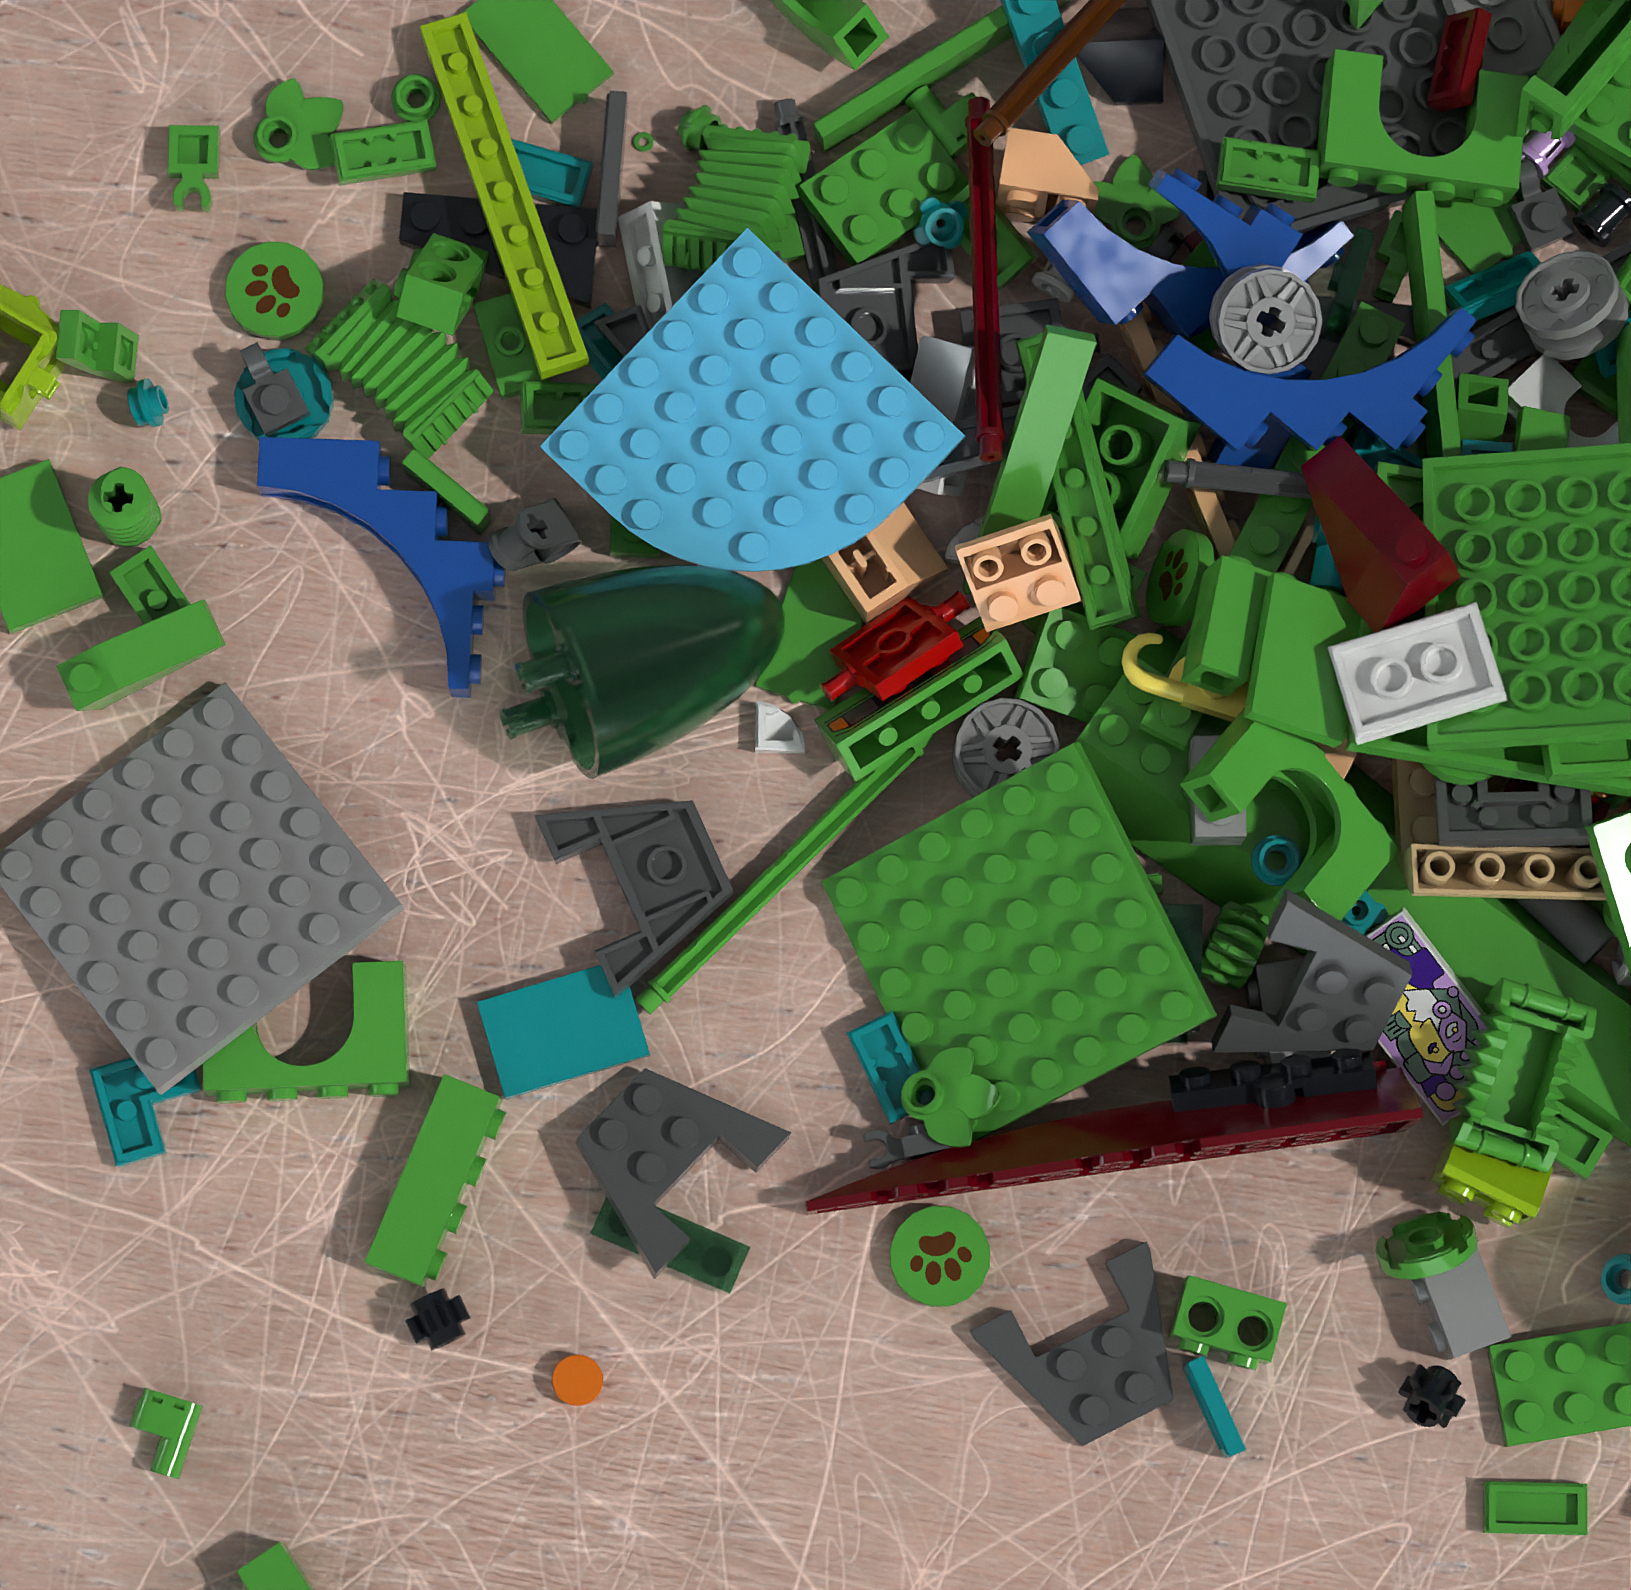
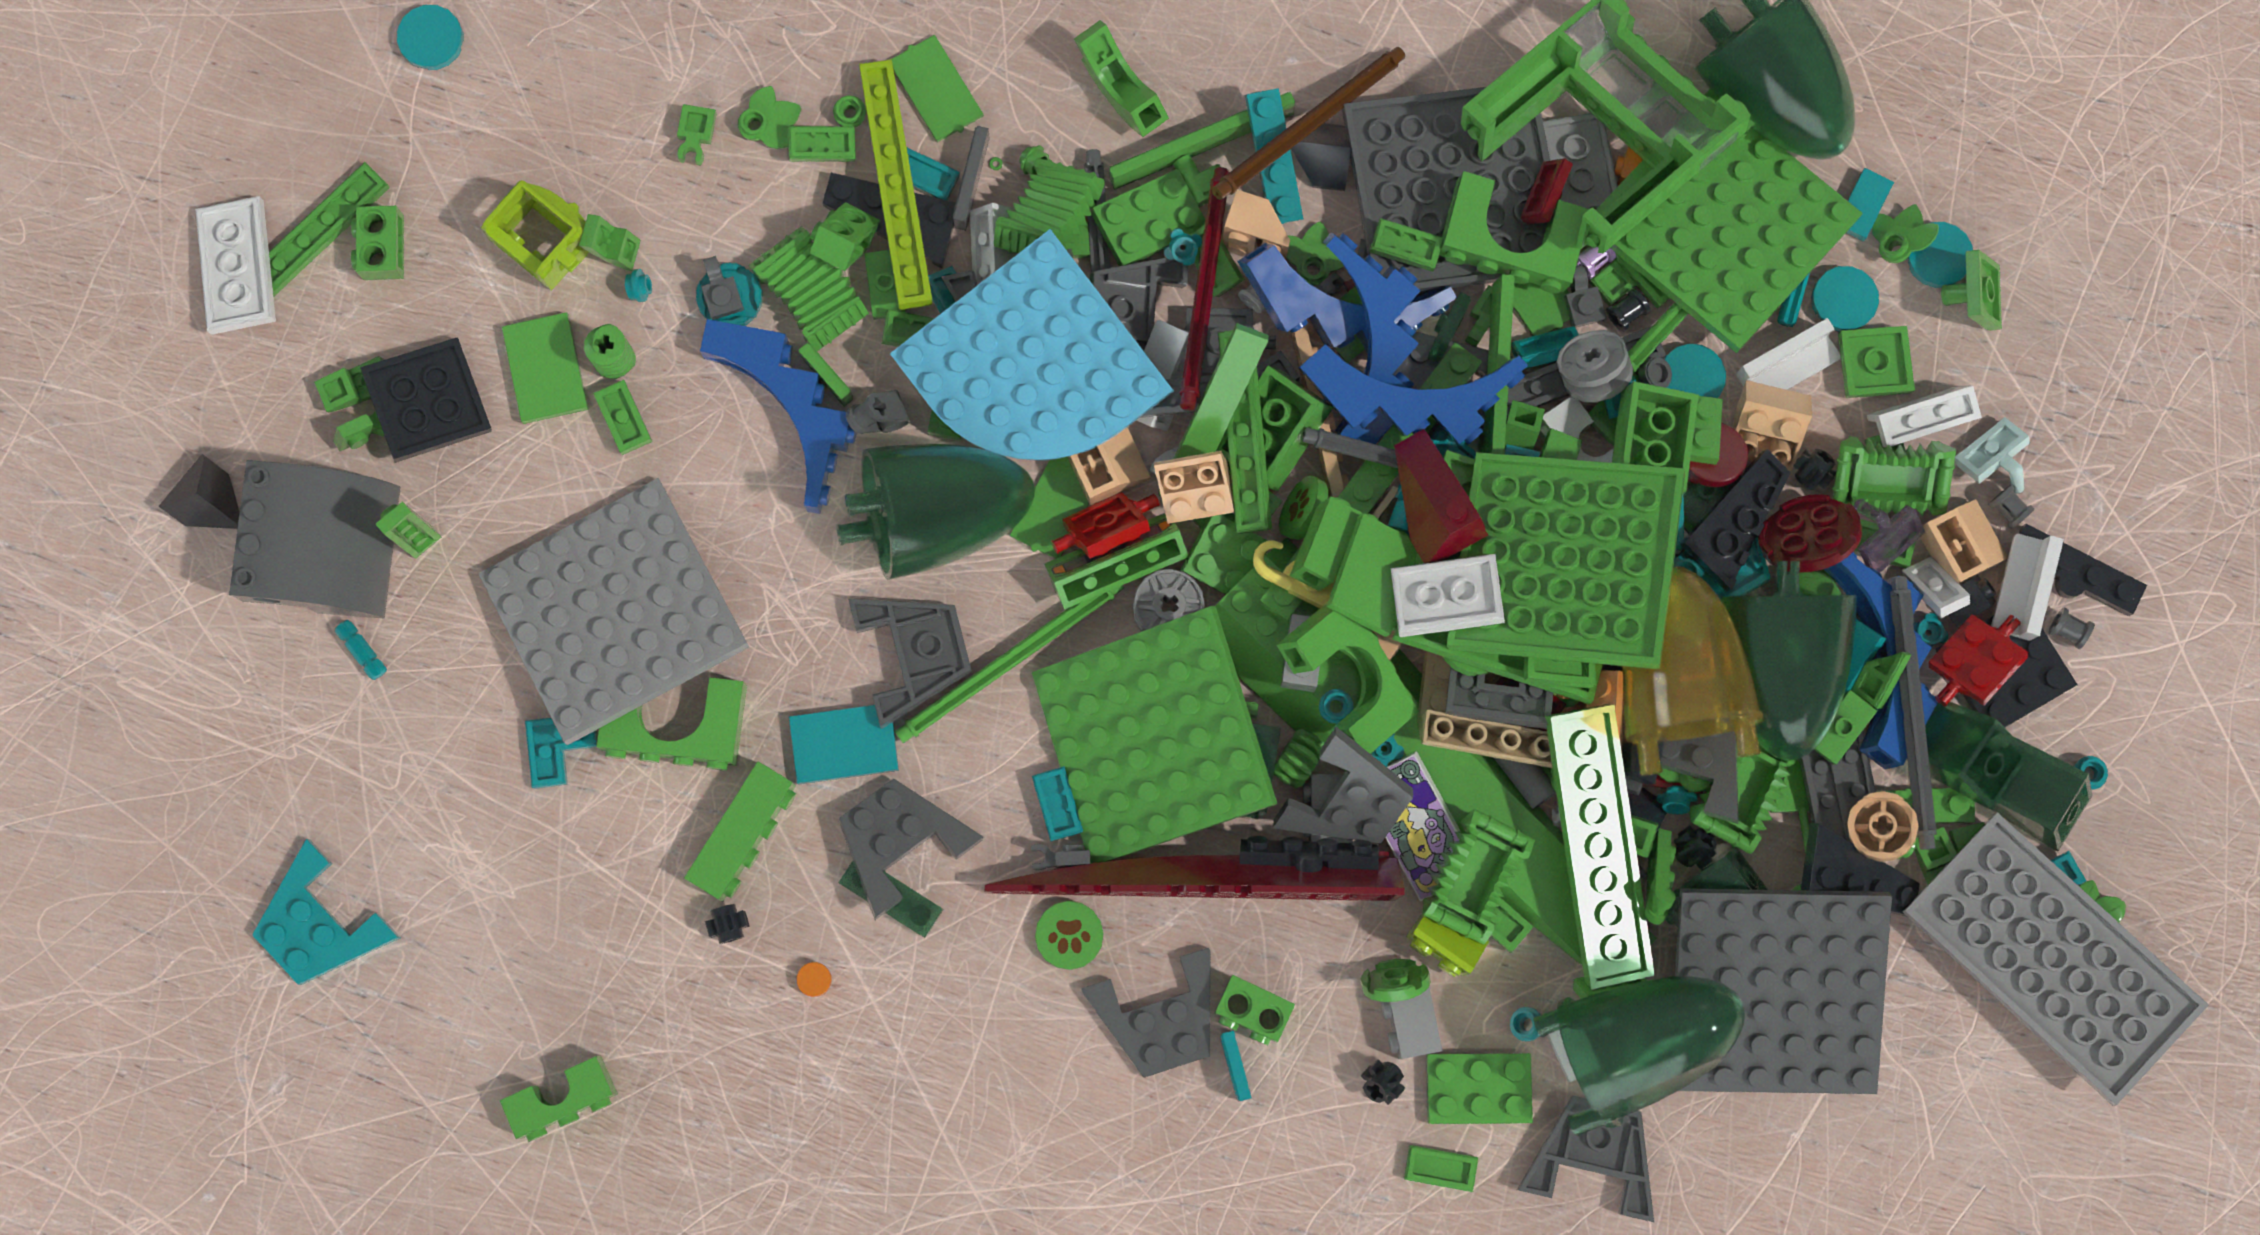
camera: 10 degrees right, 0 degrees up
(140, 657) = (602, 452): bright green slope -> none
(174, 1422) = (540, 963): bright green piece -> none
(274, 290) = (735, 224): bright green tile -> none
(776, 731) = (1018, 567): white tile -> none
(956, 1099) = (1097, 830): bright green plate -> none
(1262, 346) = (1406, 339): light grey wheel -> none

